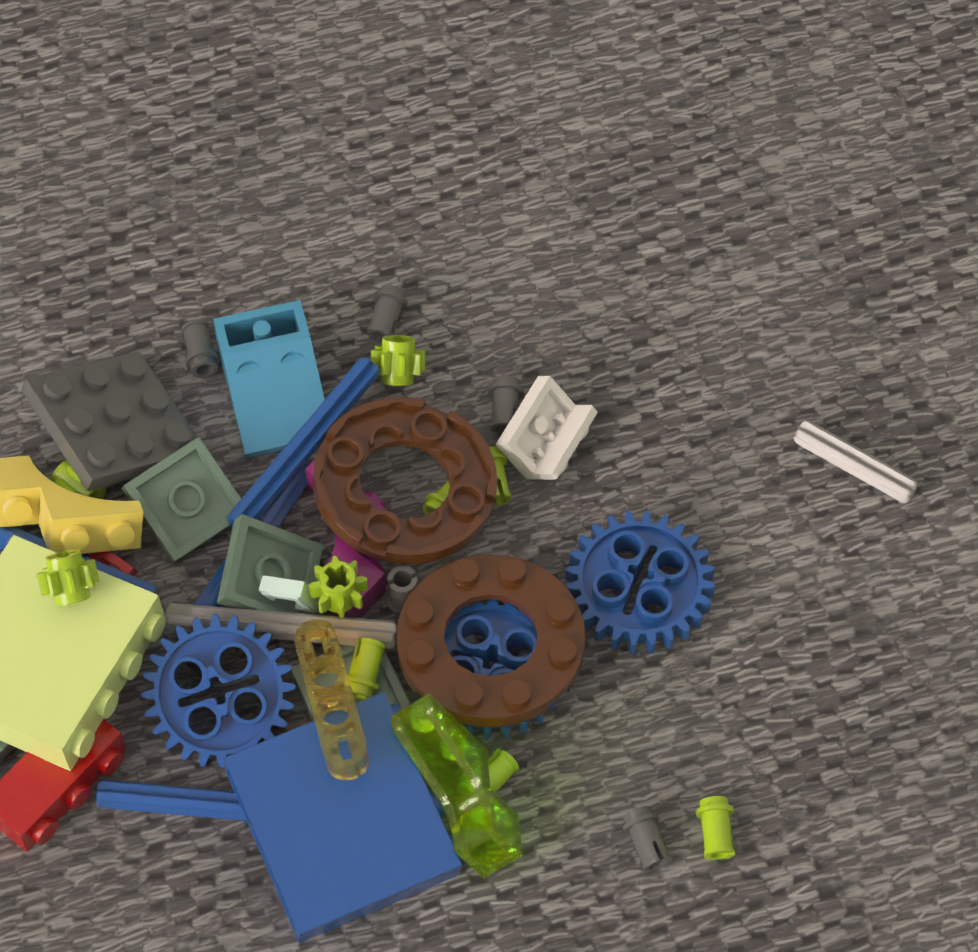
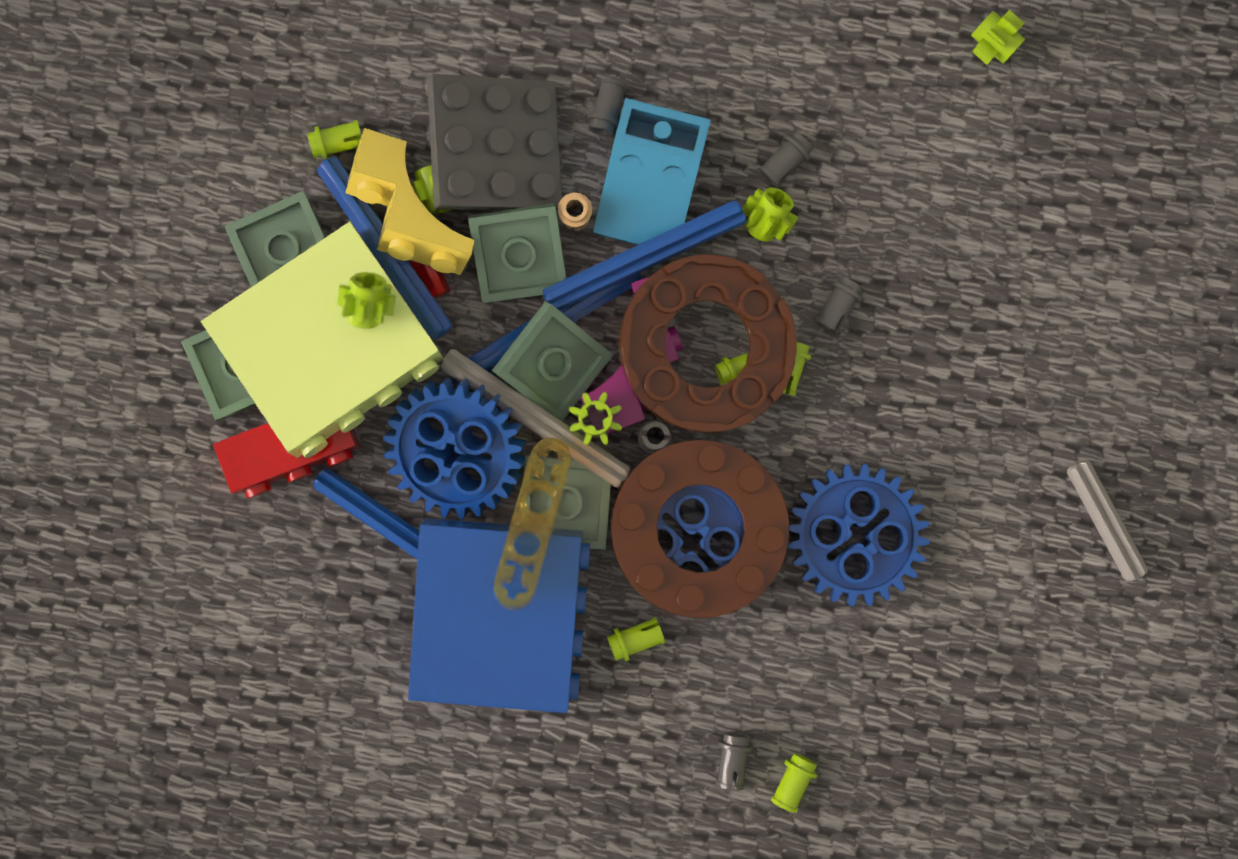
camera: 30 degrees right, 25 degrees up
(219, 439) = (571, 202): none -> tan pin
(289, 590) = (554, 394): light aqua tile -> none
(365, 667) = (582, 497): lime pin -> none
(458, 772) = (606, 632): clear neon green arch -> none
(513, 132) = (998, 37): none -> lime gear
(545, 431) = (858, 353): white bracket -> none

